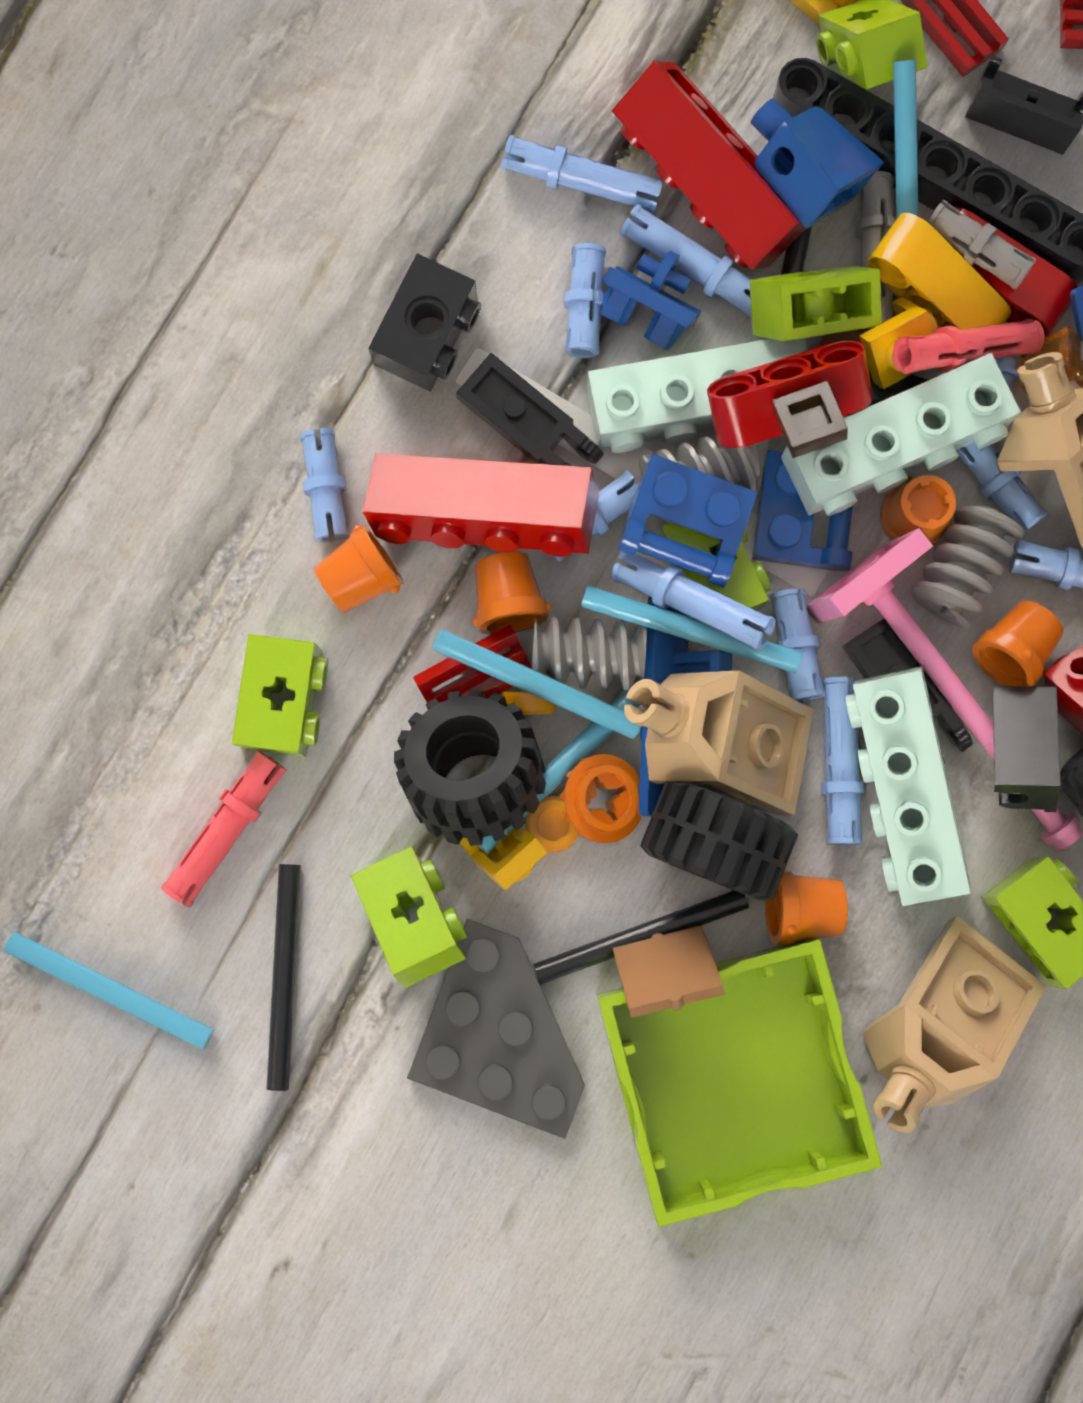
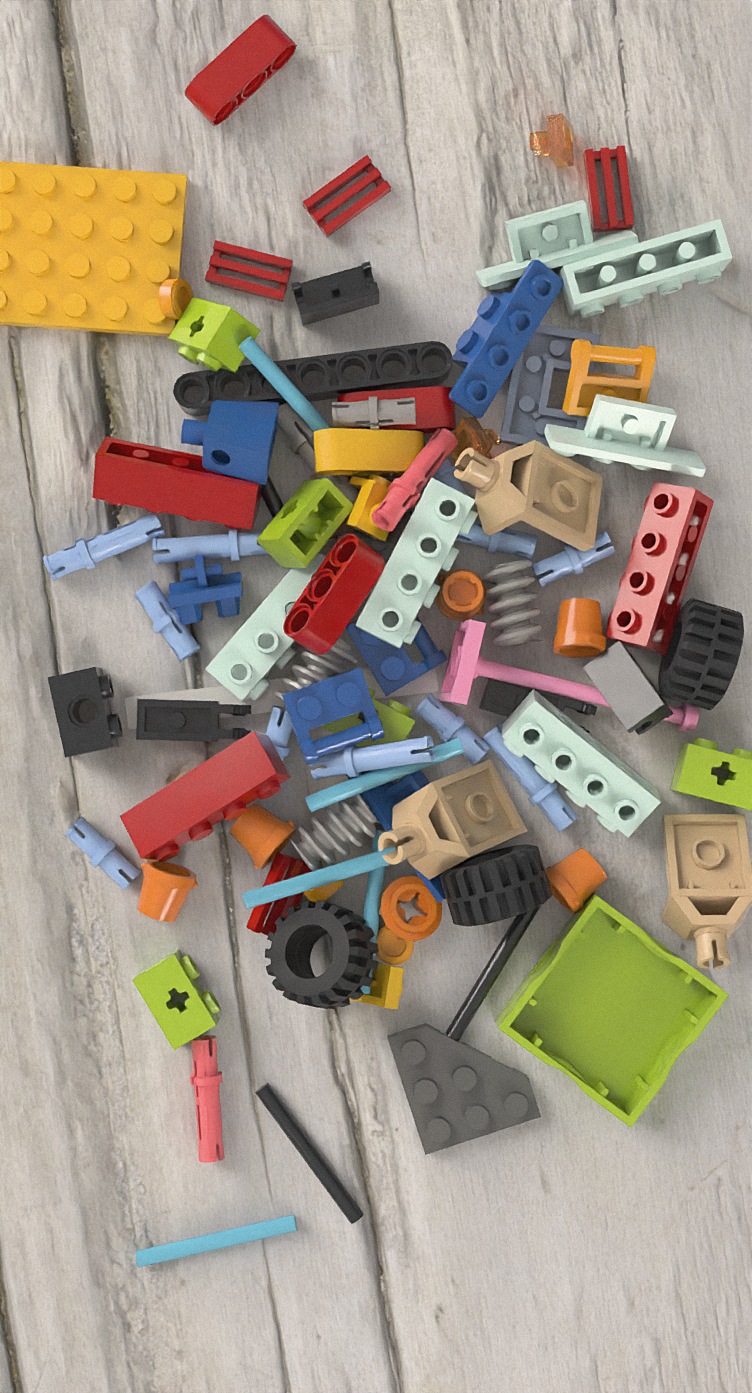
camera: 35 degrees left, 5 degrees up
(388, 893) = (332, 1065): lime brick -> none
(667, 971) = (524, 981): medium nougat piece -> none
(810, 419) = (358, 607): tile -> none

